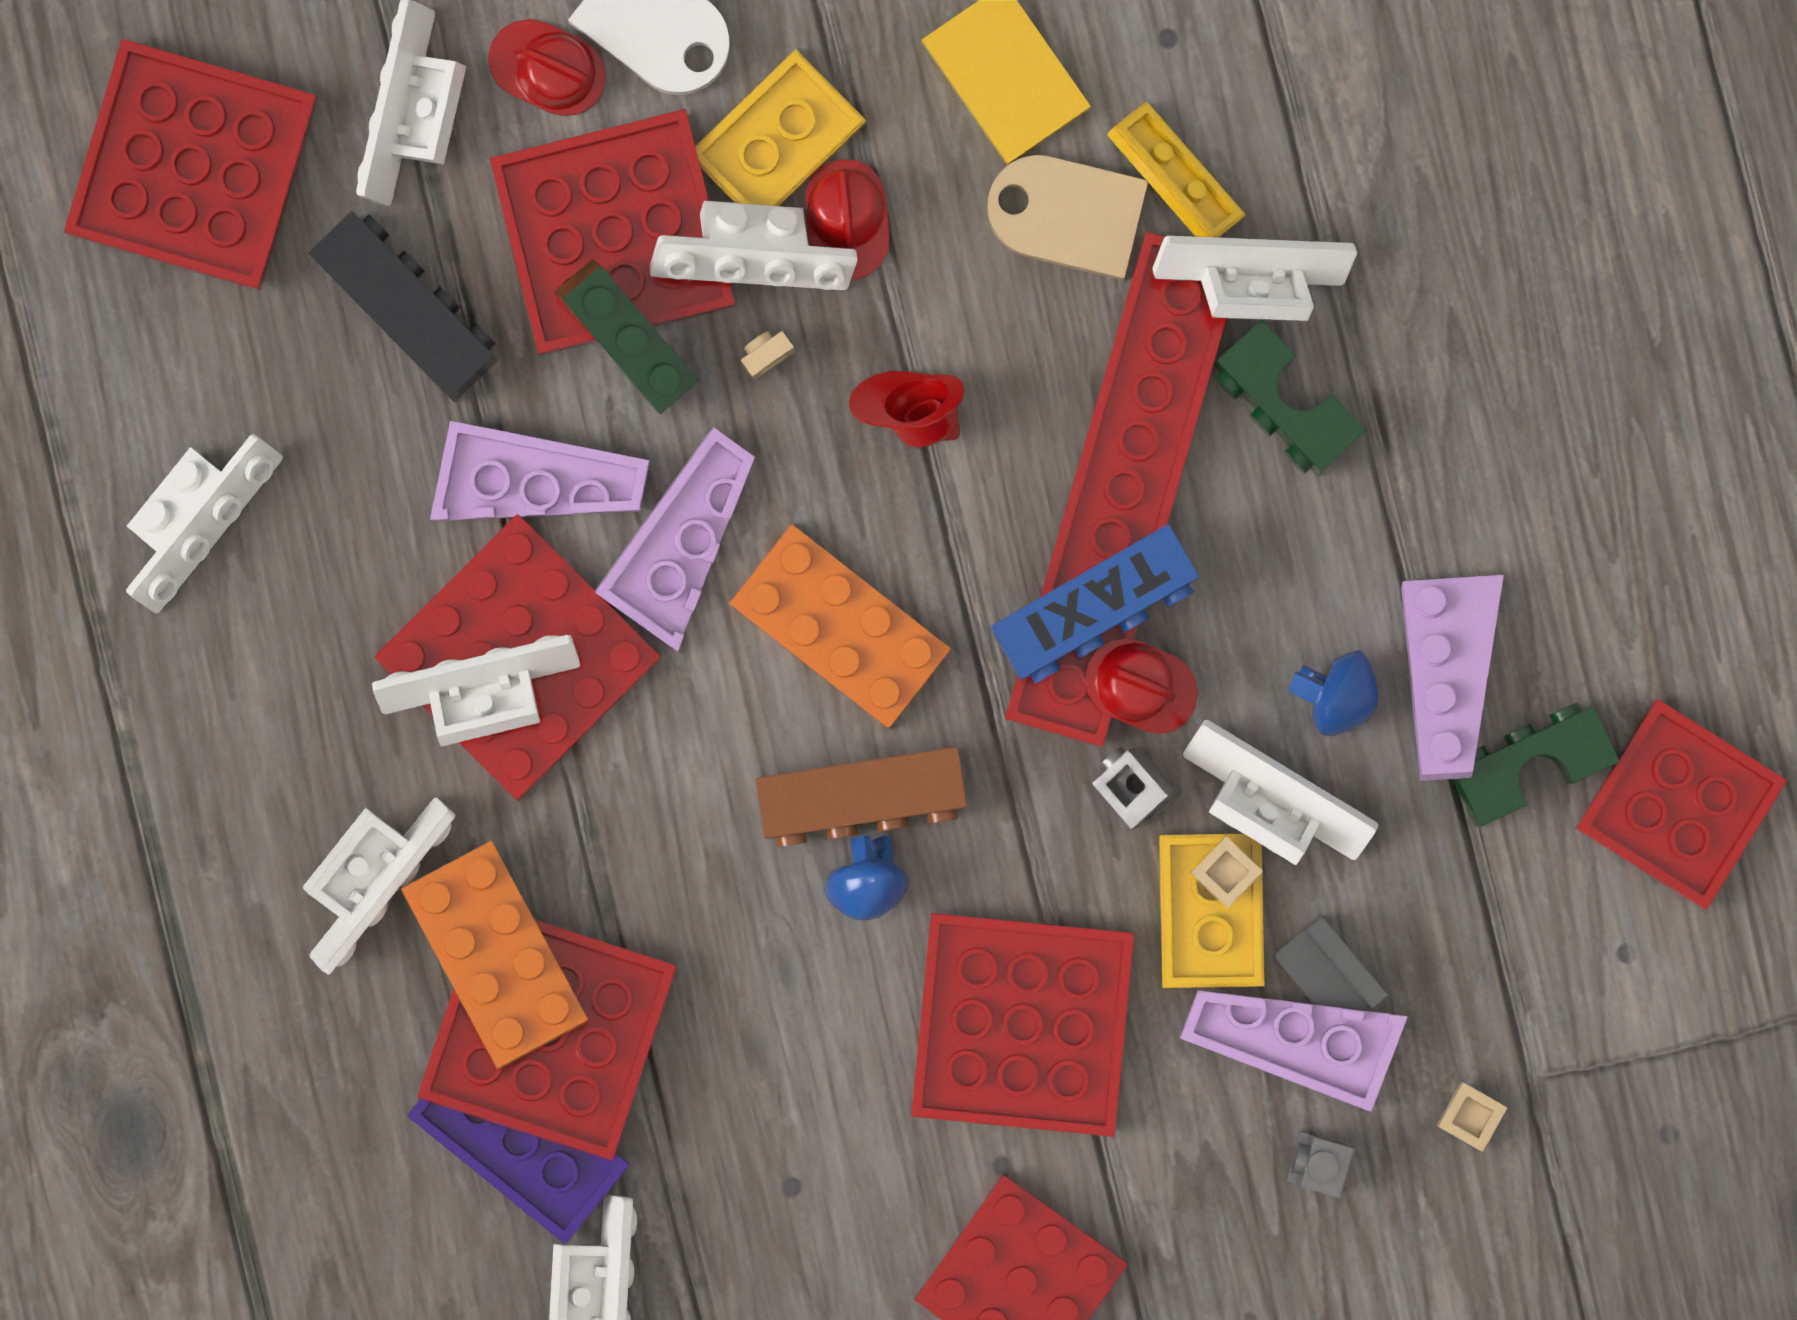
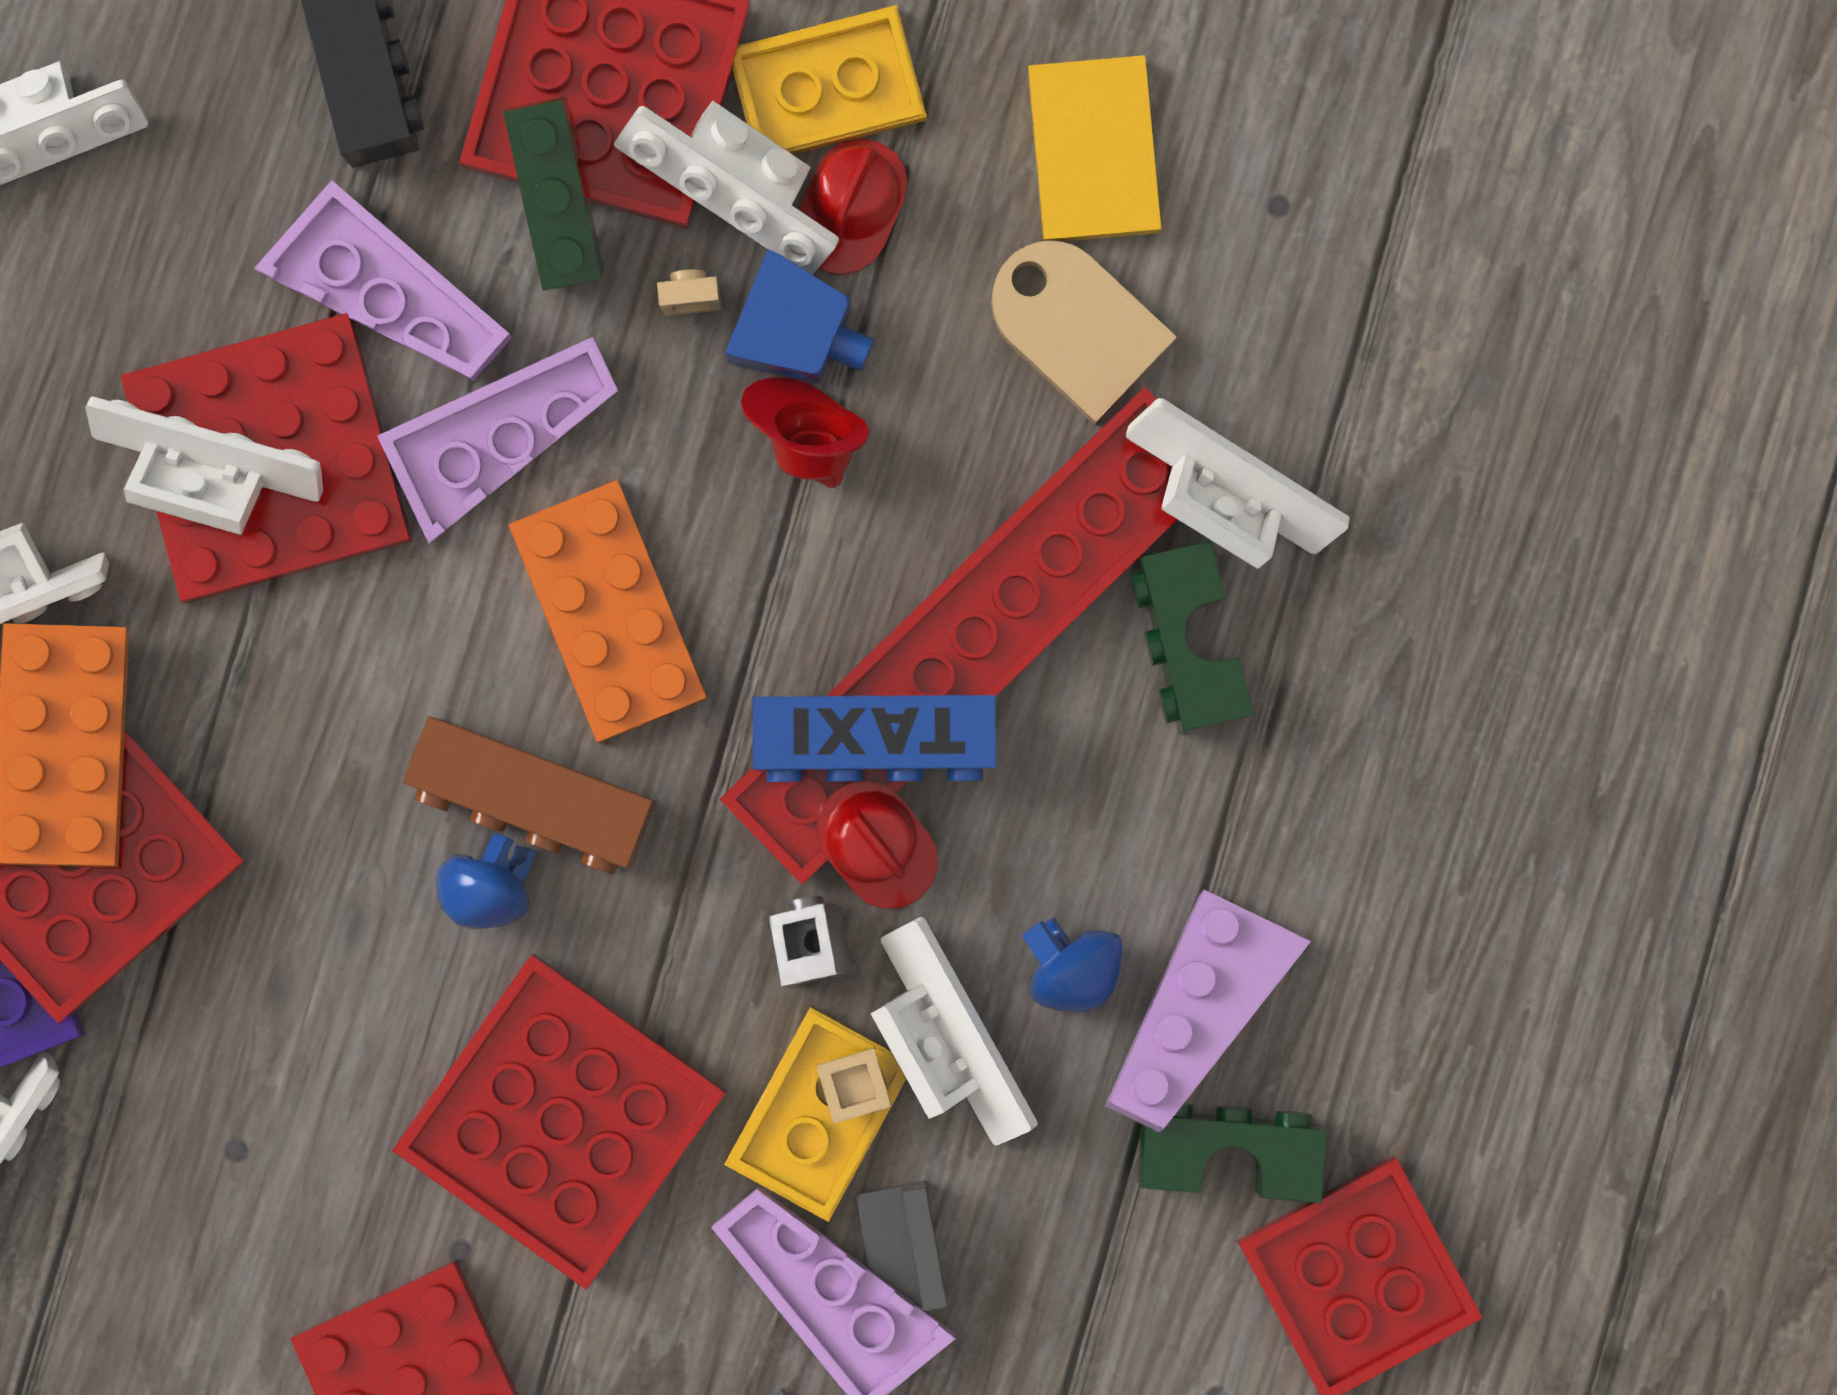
camera: 30 degrees right, 0 degrees up
(860, 333) = (795, 325): none -> blue torso
(1175, 173) = (1208, 344): yellow tile -> none

